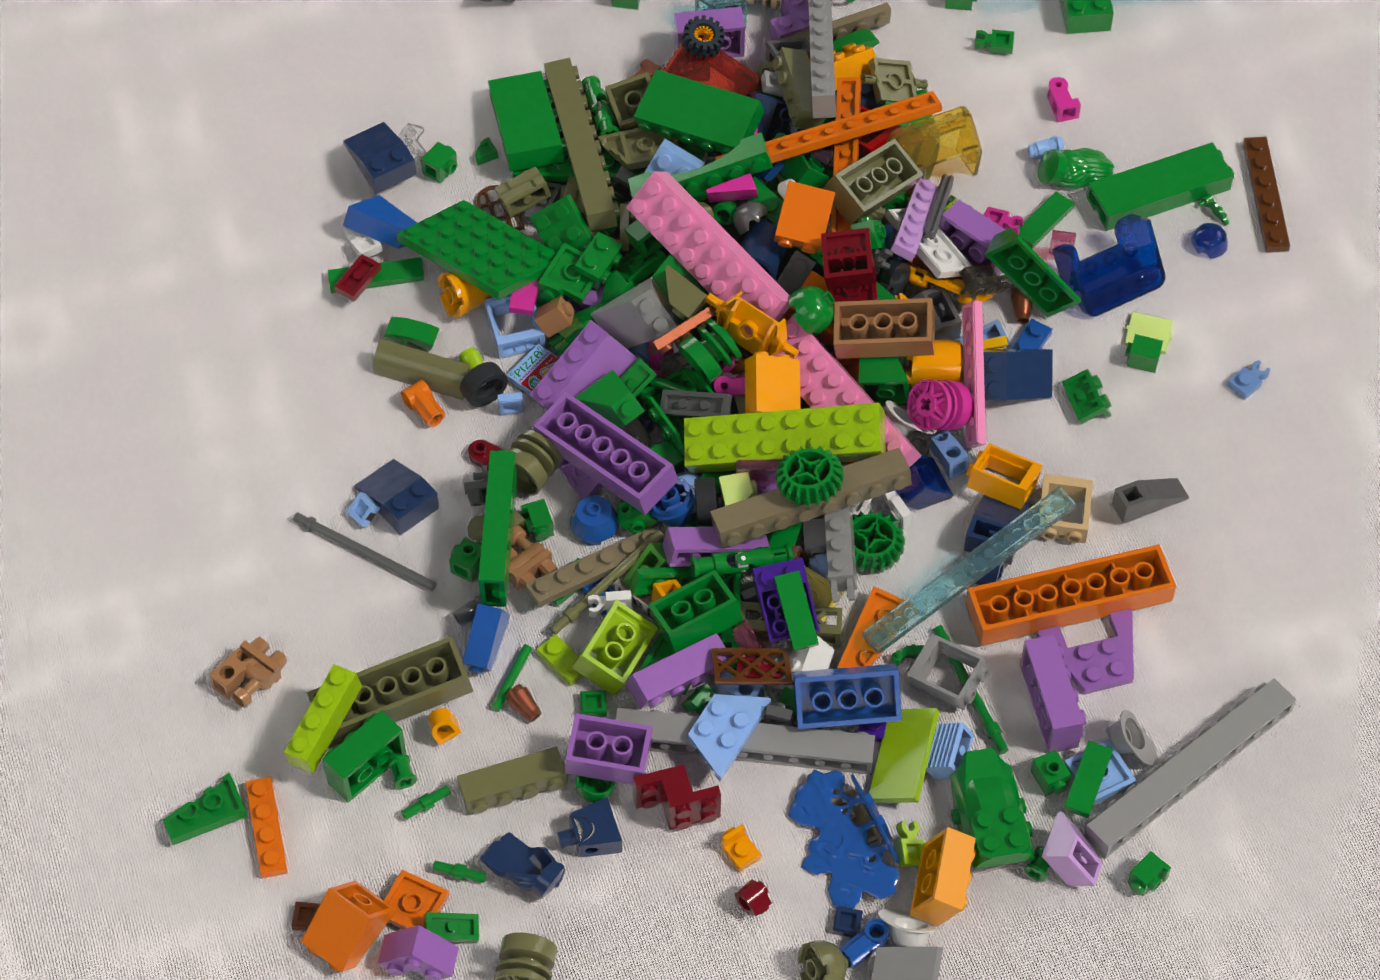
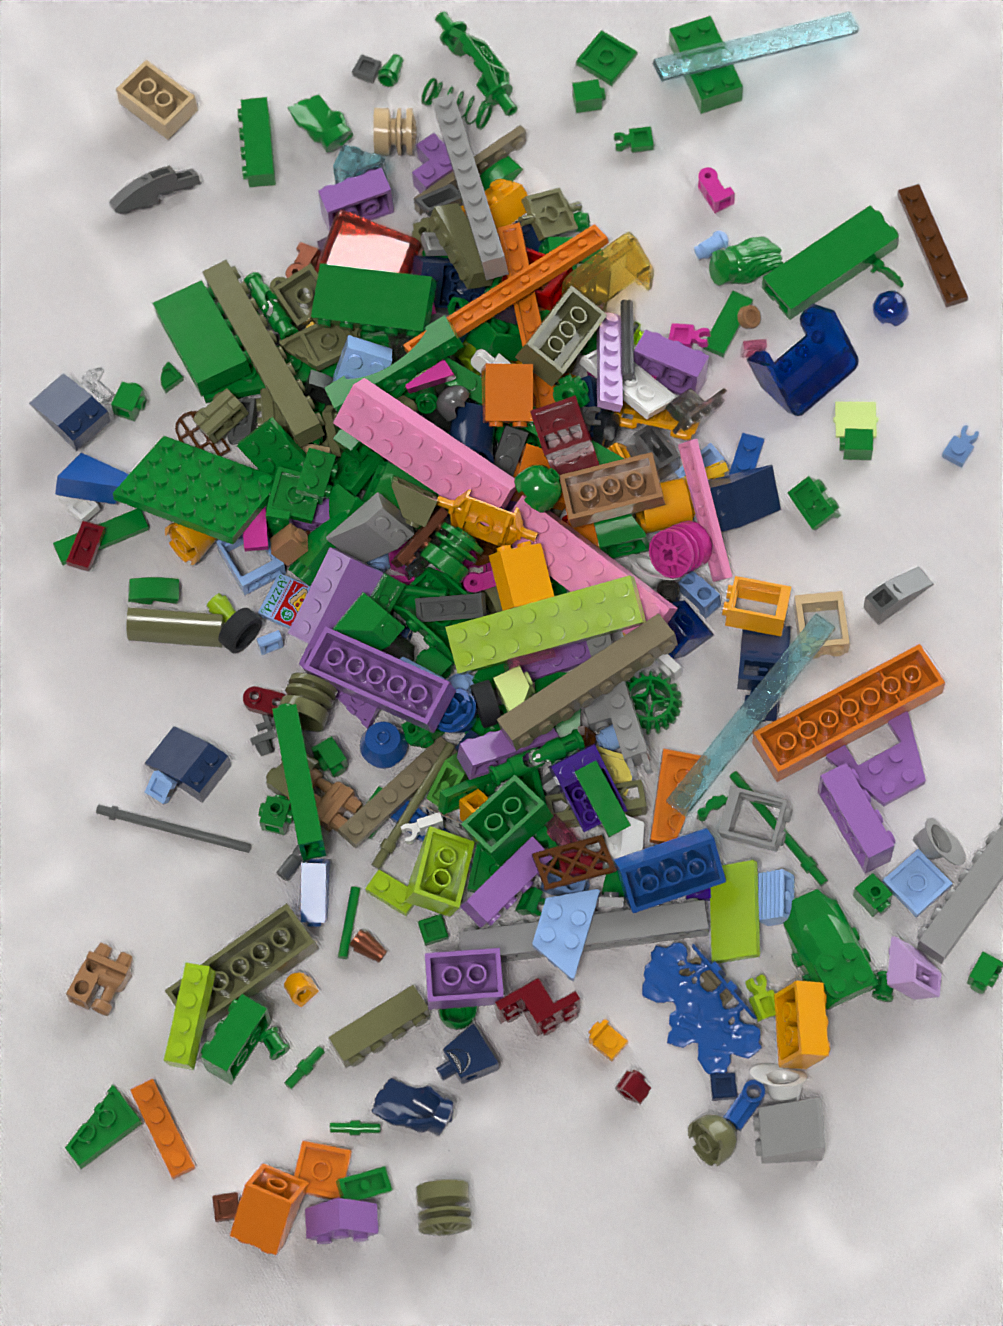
camera: 10 degrees left, 10 degrees up
(421, 400) = (181, 658): orange piece -> none
(709, 30) = (360, 207): black bush -> none
(804, 473) = (585, 653): green gear -> none
(1021, 306) = (730, 419): copper cone -> none
(1030, 273) = (733, 391): green slope -> none
(1066, 217) = (749, 317): none -> medium nougat tile
(1088, 779) = (909, 894): green tile -> none

